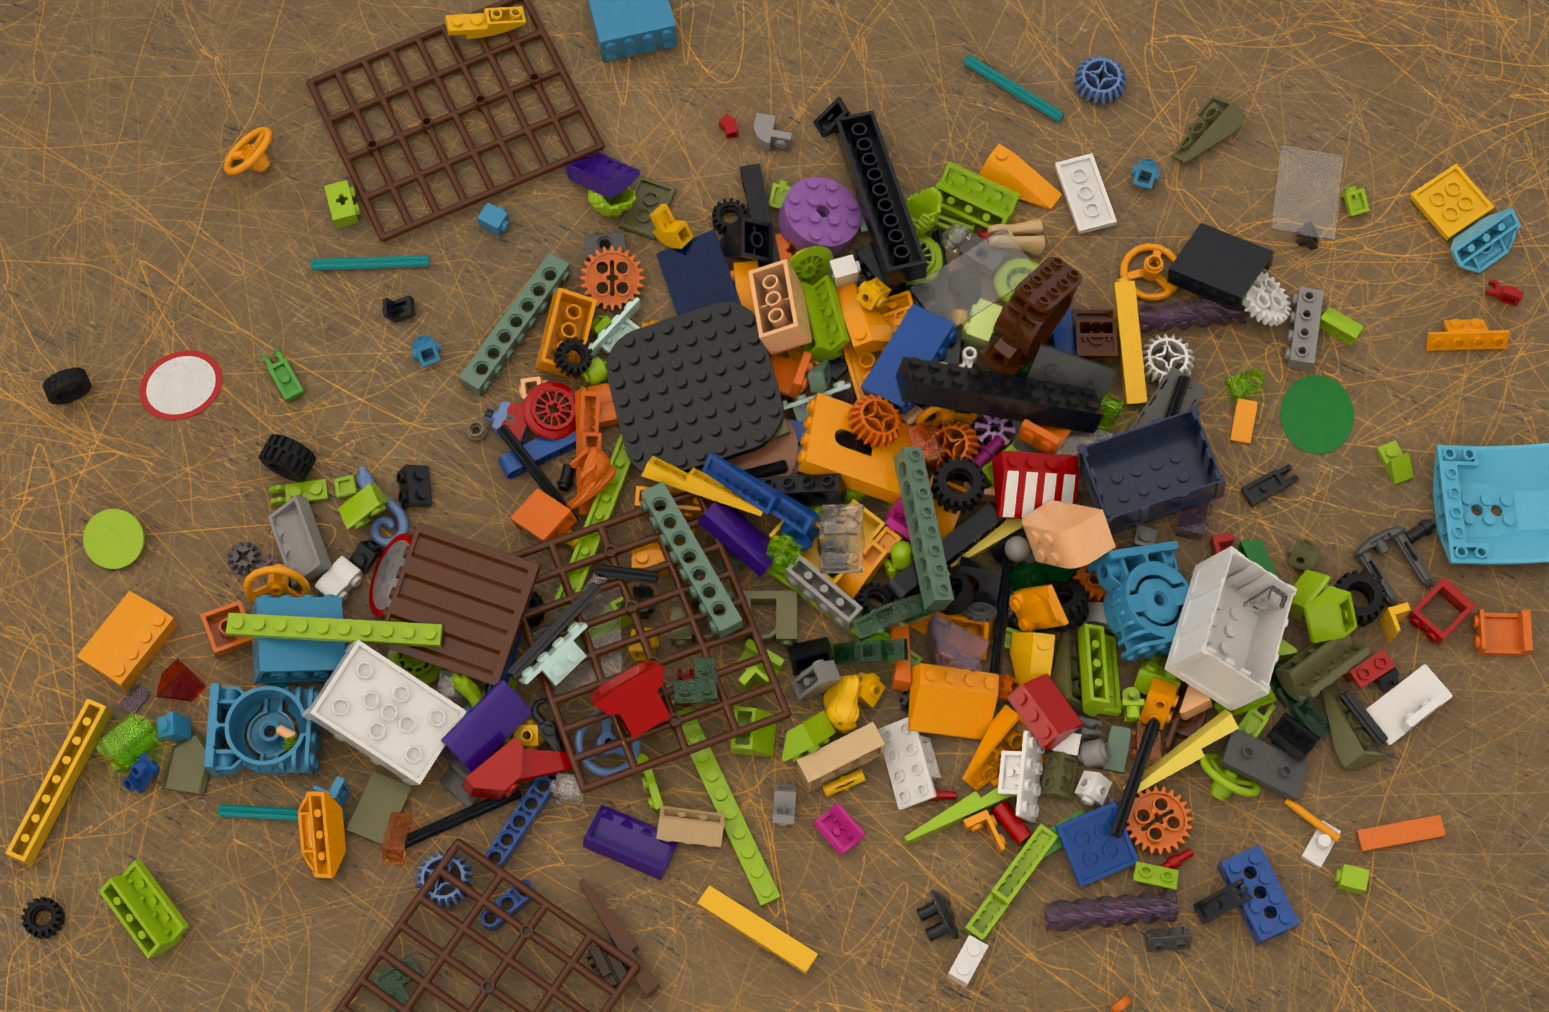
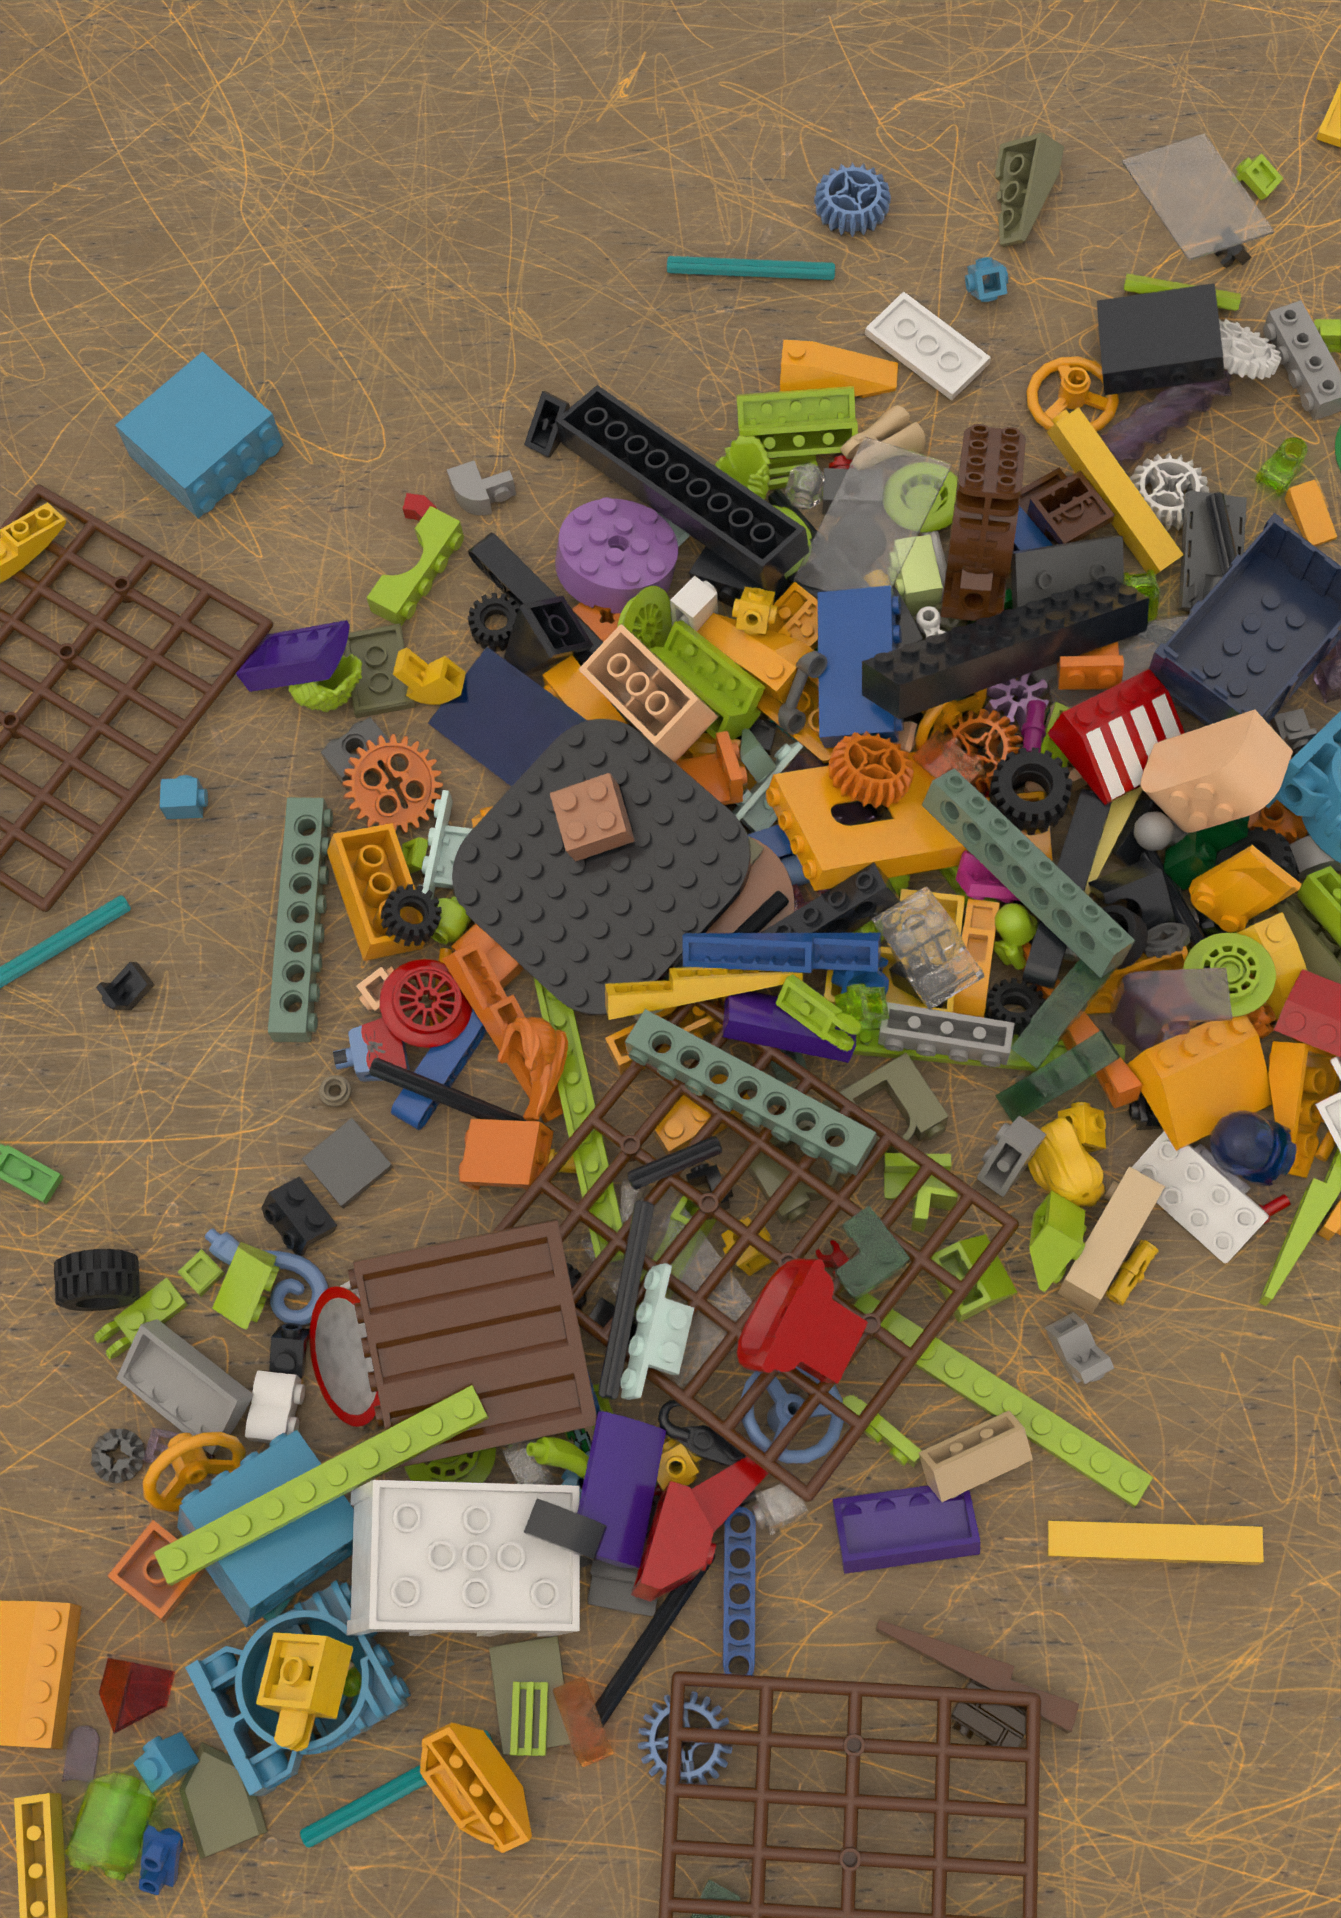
camera: 25 degrees left, 0 degrees up
(264, 726) = (303, 1682): none -> yellow brick
(339, 791) = (462, 1710): dark azure panel -> none
(364, 813) = (515, 1719): none -> lime tile
(425, 350) = (199, 1022): dark azure brick -> none
(443, 727) = (565, 1529): none -> black slope
(458, 473) = (347, 1163): none -> dark grey tile
(513, 895) = (803, 1704): blue beam -> none
(566, 478) = (498, 1083): black pin -> none
(684, 171) = (397, 595): none -> lime arch
(703, 359) = (592, 817): none -> nougat brick
(756, 539) = (817, 1013): none -> lime hinge
(778, 193) = (542, 556): lime bracket -> none
(805, 653) = (975, 1127): black brick -> none
(839, 829) = (1170, 1337): dark pink bracket -> none
(854, 366) = (789, 717): none -> dark grey bar
(951, 753) = (1252, 1147): none -> clear blue tile
(1003, 650) = (1235, 953): none -> lime wheel
(1242, 231) = (1143, 285): none -> lime tile

